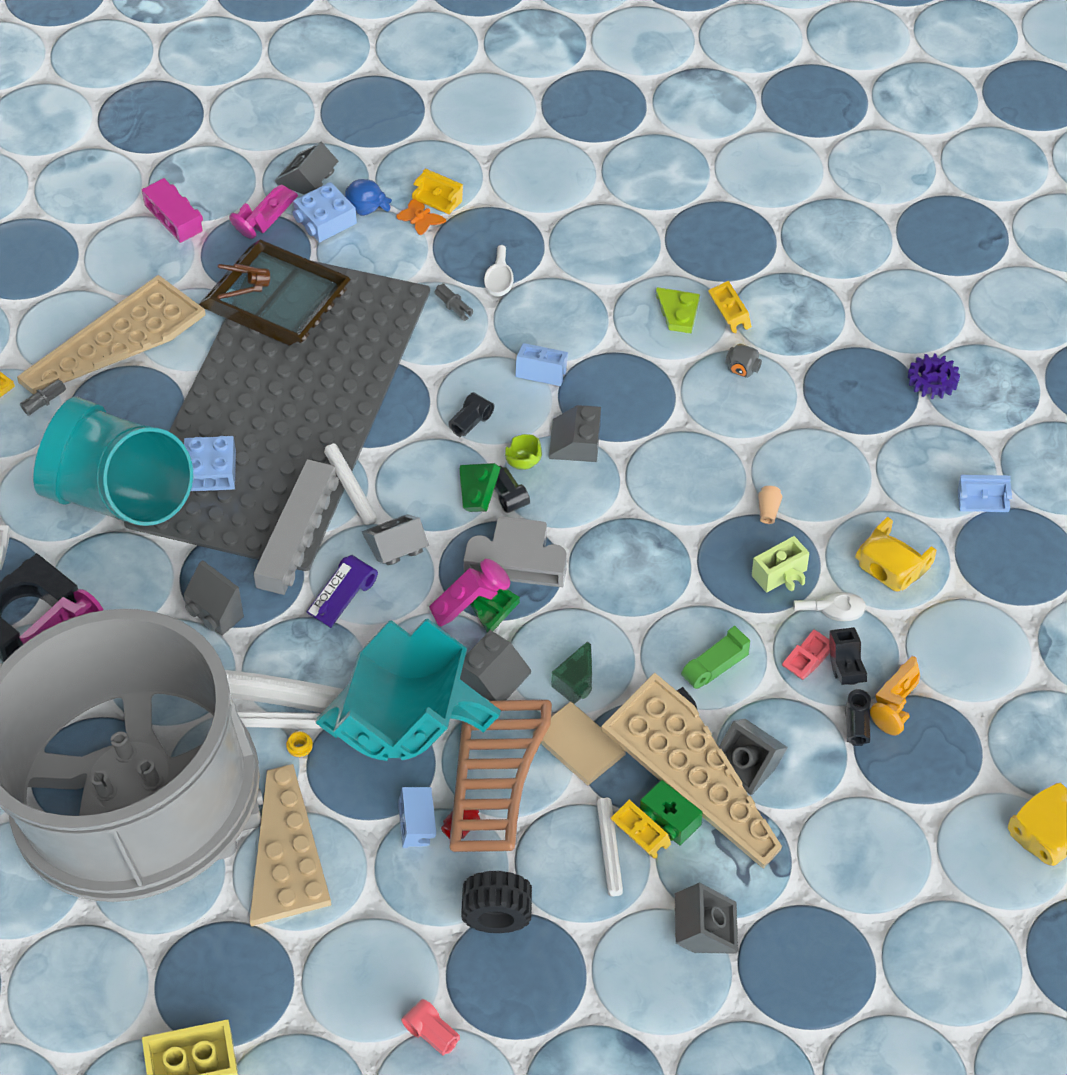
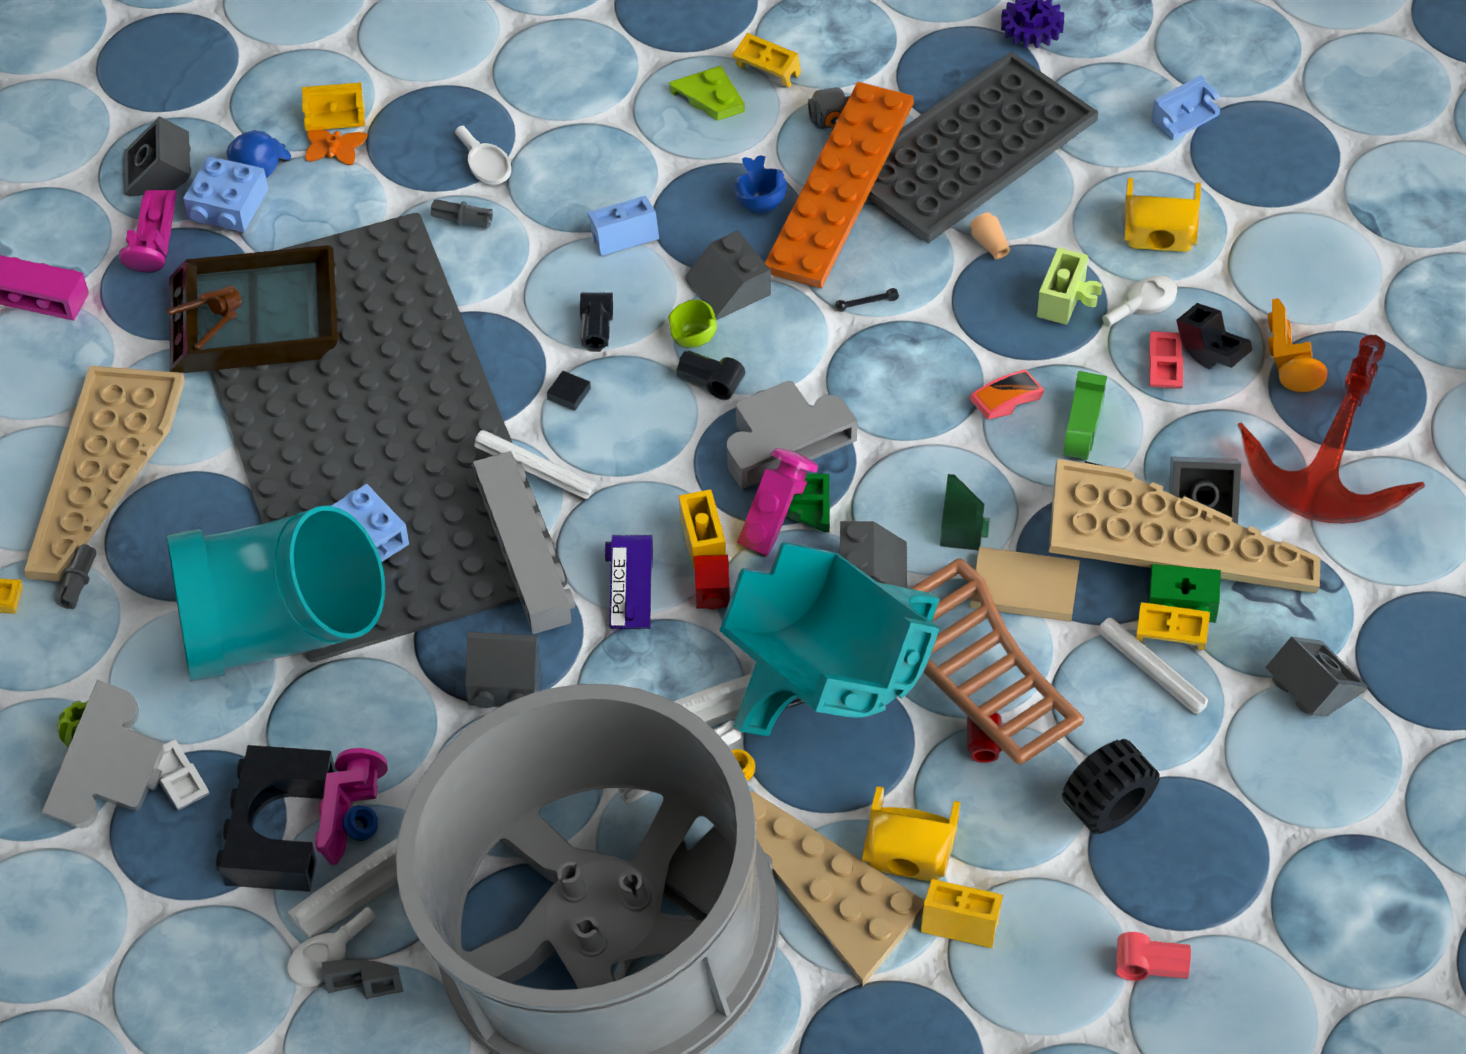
camera: 35 degrees left, 0 degrees up
(342, 920) = (961, 913): none -> yellow hinge
(356, 853) = (909, 840): none -> yellow piece
(383, 613) = (712, 581): none -> red brick
(396, 539) = (639, 491): slope -> none
(407, 585) = (701, 525): none -> yellow brick
(416, 450) = (568, 390): none -> black tile
(416, 816) = (934, 760): light blue hinge -> none
(478, 485) = (675, 386): green wing -> none
(647, 389) = (760, 188): none -> blue hat
(671, 506) = (891, 294): none -> black hinge
(675, 613) = (1004, 393): none -> slope
(699, 413) = (839, 184): none -> orange plate
(813, 437) = (976, 145): none -> dark grey plate
(826, 800) = (1317, 489): none -> clear red piece
(858, 717) = (1266, 386): black piece -> none

